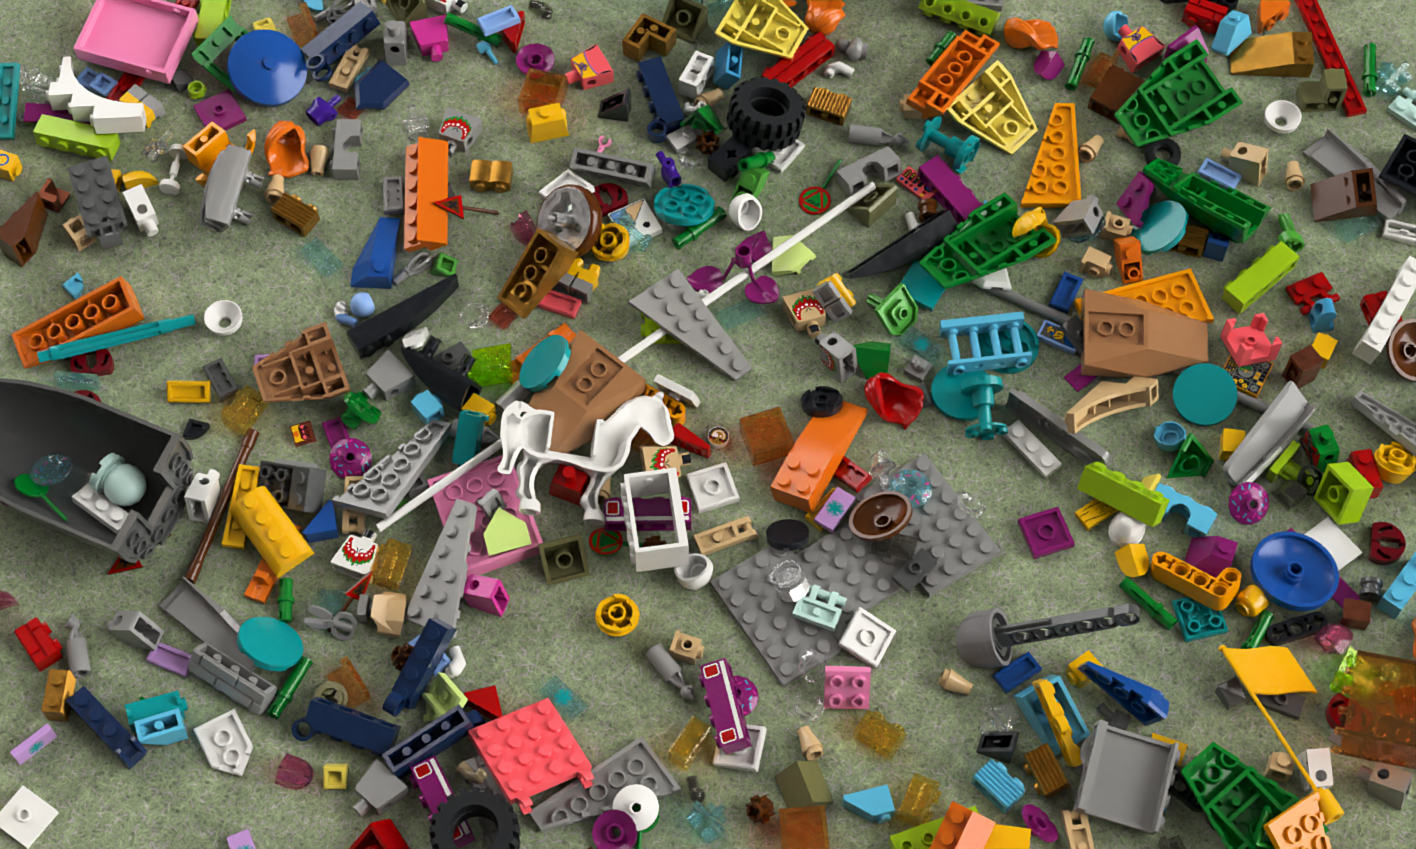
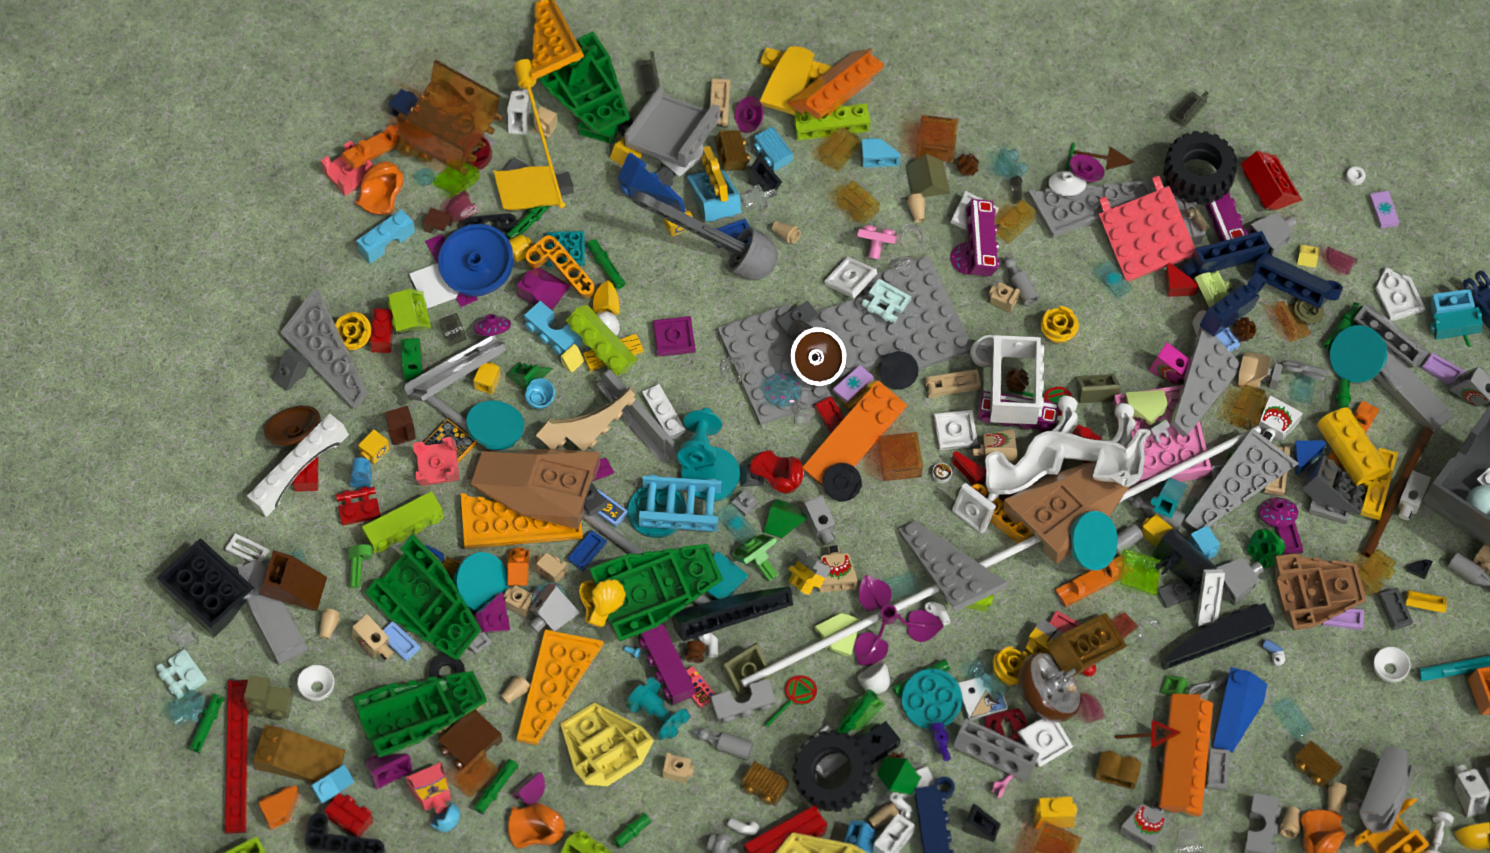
camera: 170 degrees left, 0 degrees up
(303, 433) = (1320, 545): clear red tile -> none
(355, 591) = (1285, 384): piece -> none
(362, 305) = (1257, 654): light blue piece -> none
(789, 581) = (908, 318): clear piece -> none
(951, 73) = (632, 781): orange slope -> none
(1288, 469) = (438, 347): lime piece -> none
(1371, 589) = (415, 240): dark grey wheel -> none
(1385, 555) = (384, 286): dark red piece -> none

